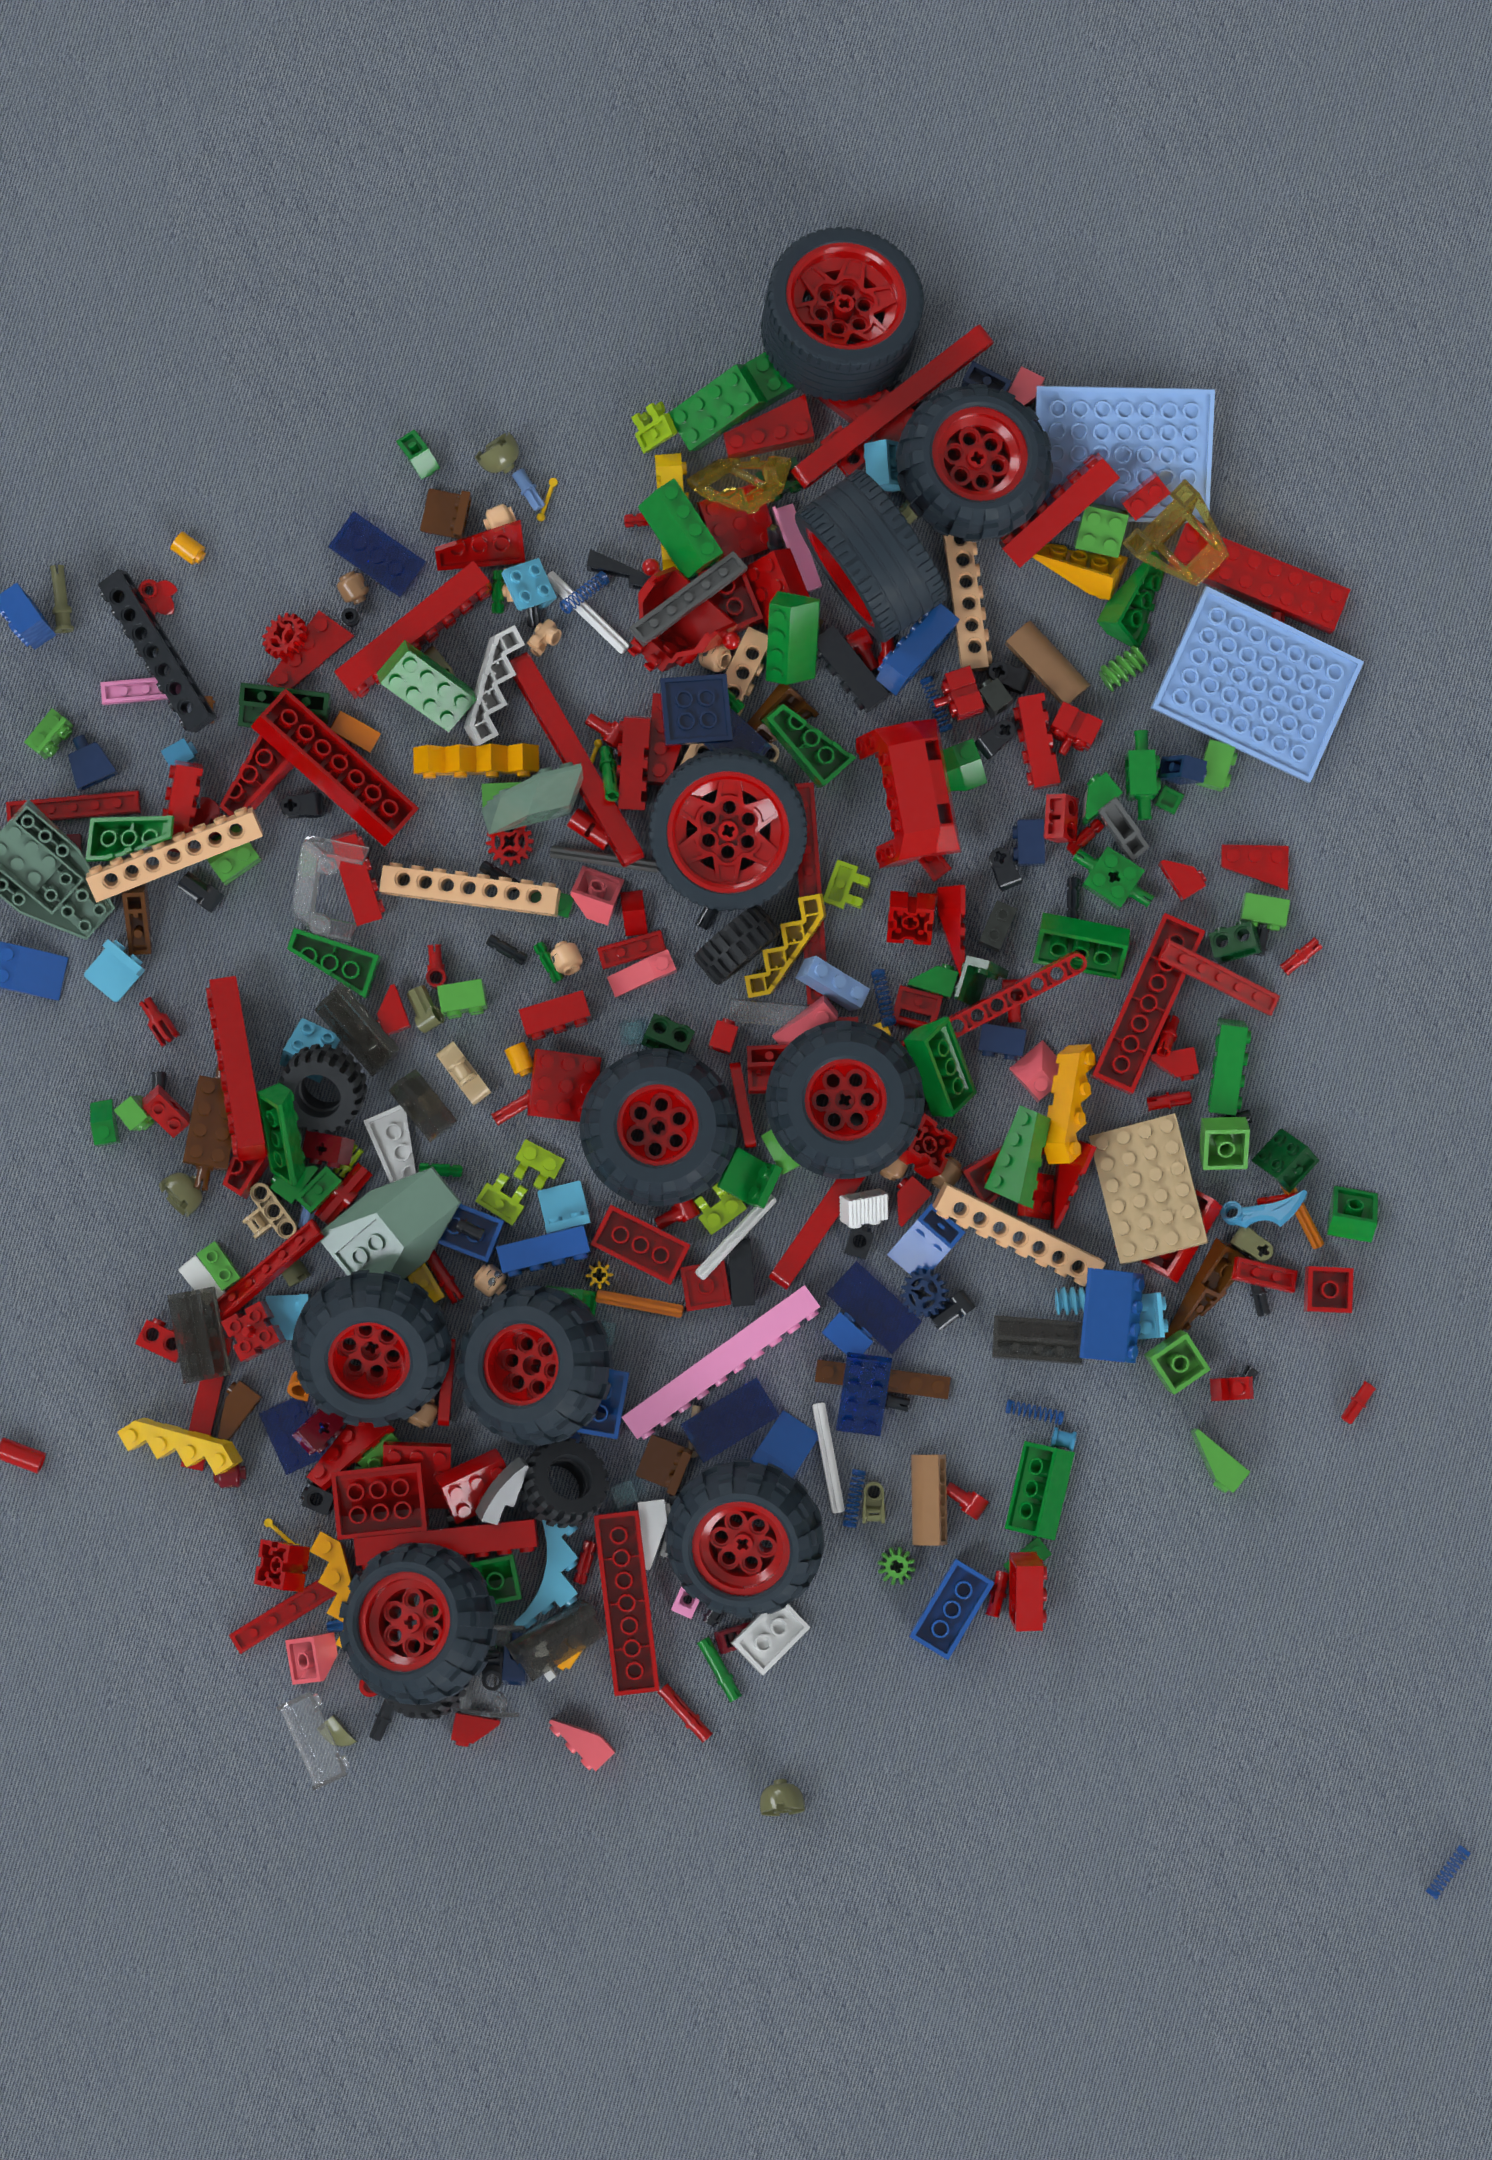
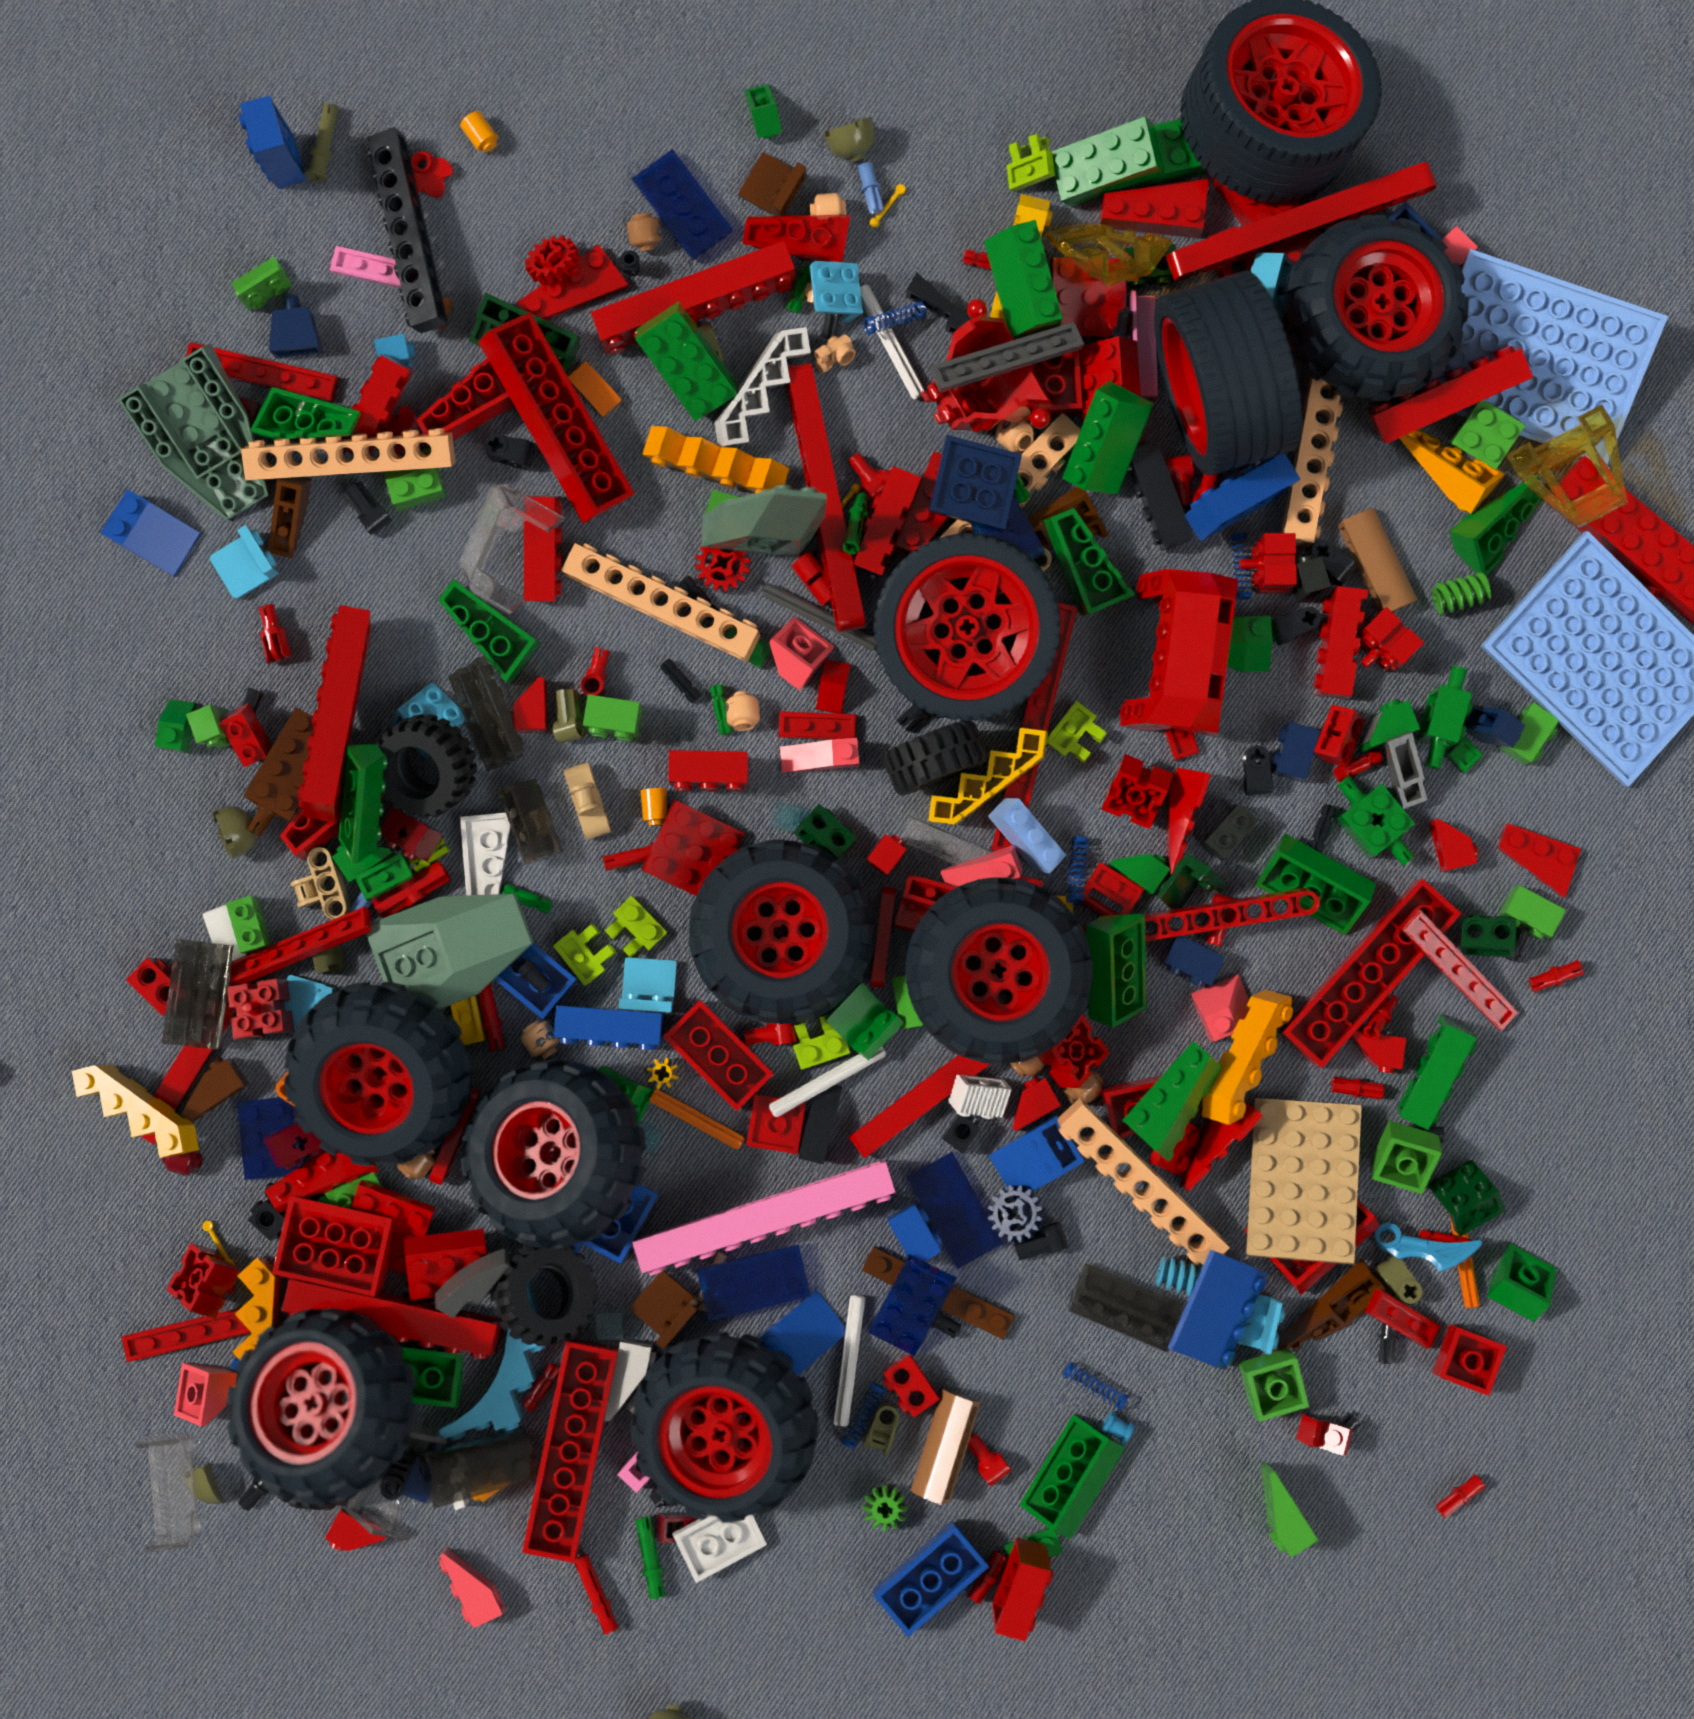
camera: 20 degrees right, 0 degrees up
(887, 1456) = (916, 1382): none -> red brick
(1145, 496) = (1549, 411): red brick -> none

